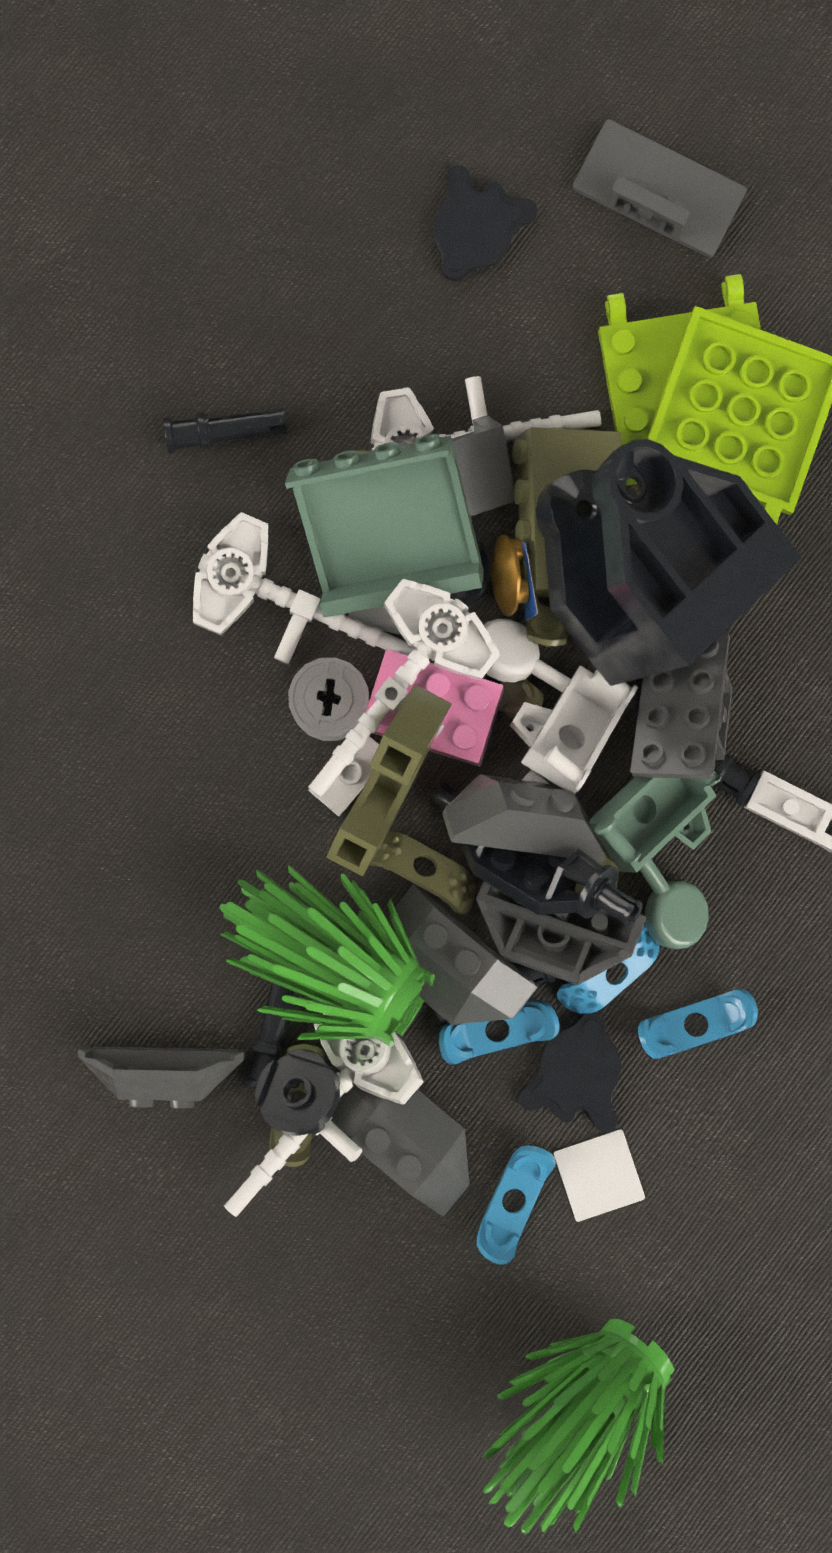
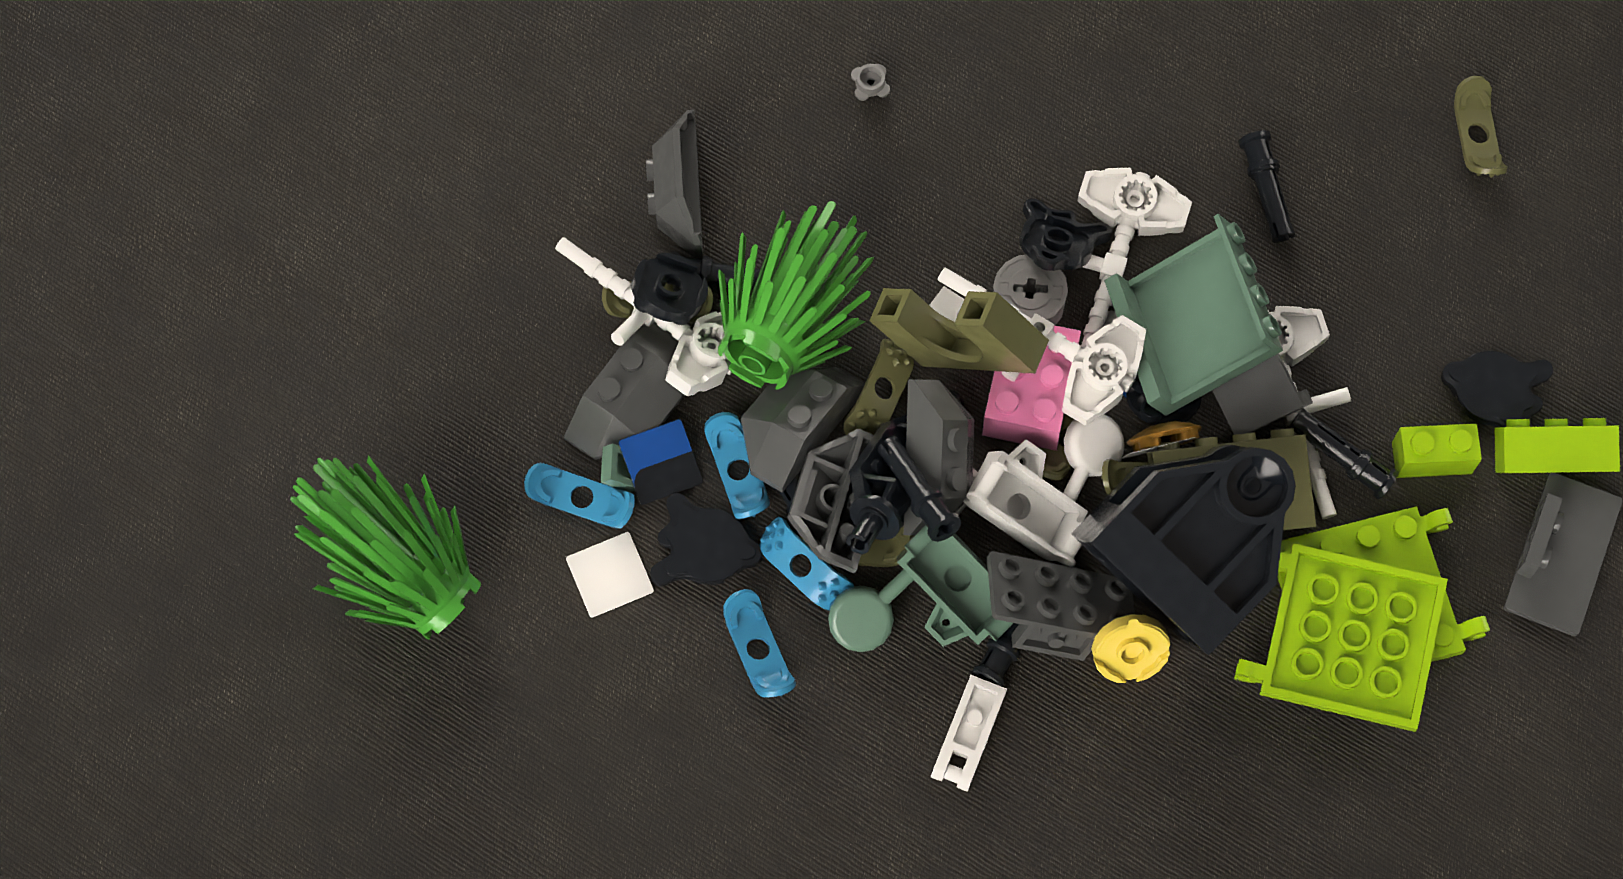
camera: 90 degrees right, 15 degrees down
(44, 841) = (870, 72): none -> light grey plate
(153, 197) = (1473, 108): none -> olive piece
(270, 662) = (1057, 239): none -> black tile
(484, 1113) = (660, 462): none -> sticker
(488, 1157) = (614, 469): none -> sand green plate
(543, 297) = (1436, 450): none -> lime brick
(550, 380) = (1358, 463): none -> black pin
(552, 174) = (1557, 447): none -> lime brick
(590, 835) = (926, 500): none -> black pin
(737, 647) = (1131, 648): none -> light yellow tile

